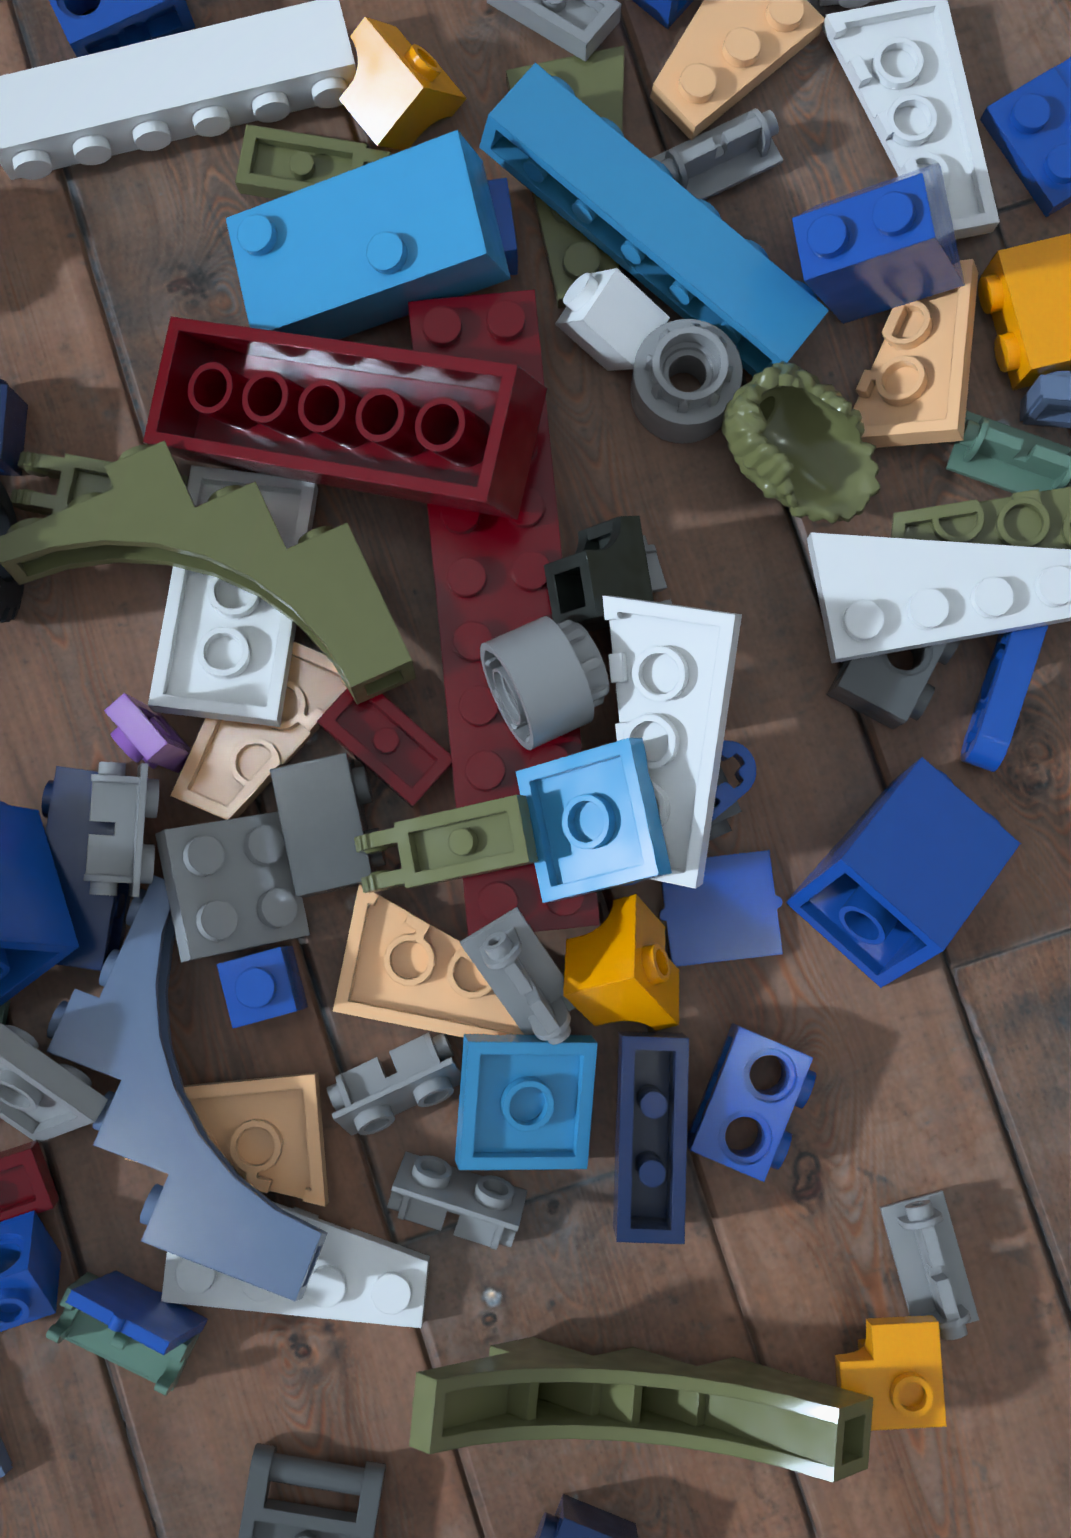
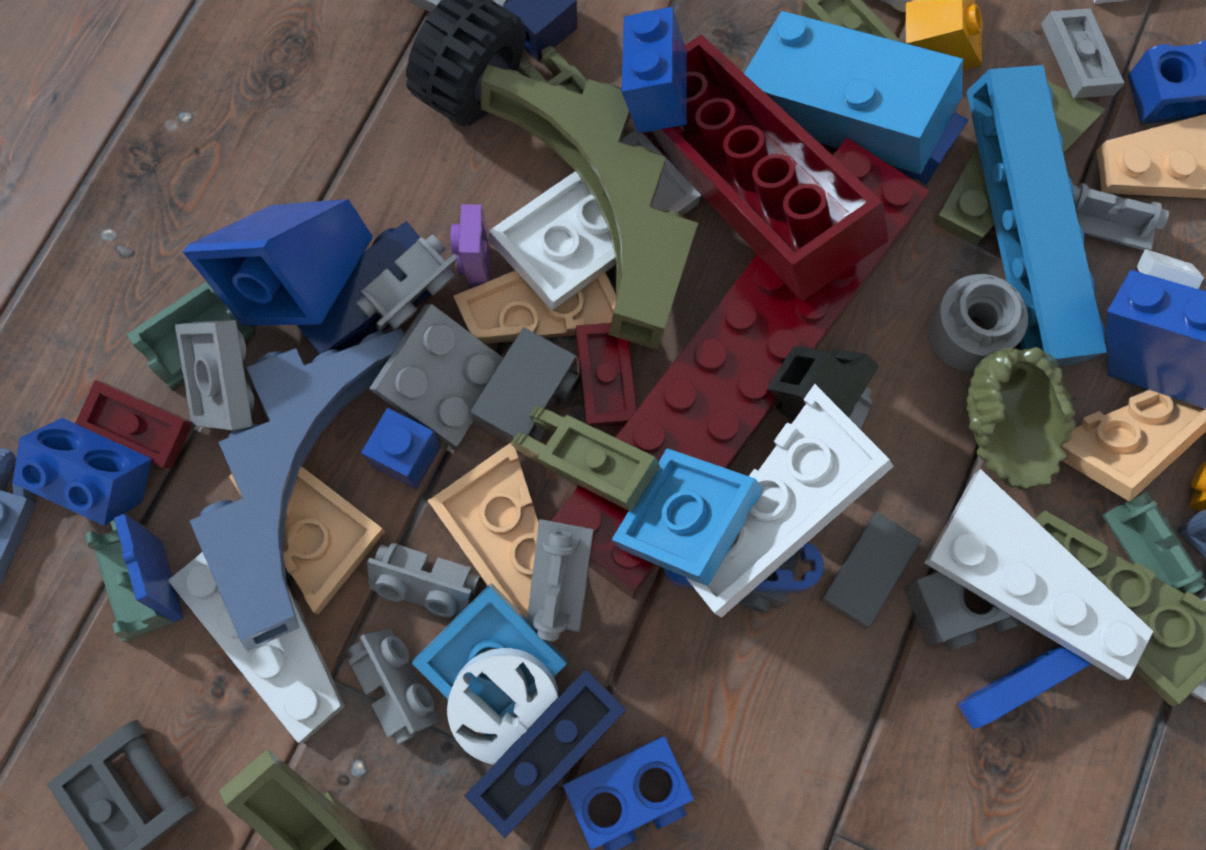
camera: 40 degrees right, 10 degrees down
(164, 402) = (654, 70): none -> blue brick
(545, 679) = (735, 406): light grey piece -> none
(568, 1167) = (469, 709): none -> white piece
(609, 317) = (961, 246): white brick -> none
(623, 969) = (624, 635): light orange brick -> none
(726, 915) = (718, 659): blue piece -> none
(786, 706) = (871, 570): none -> dark grey tile
(819, 173) = (1169, 269): none -> white plate
(905, 874) = (857, 739): blue slope -> none

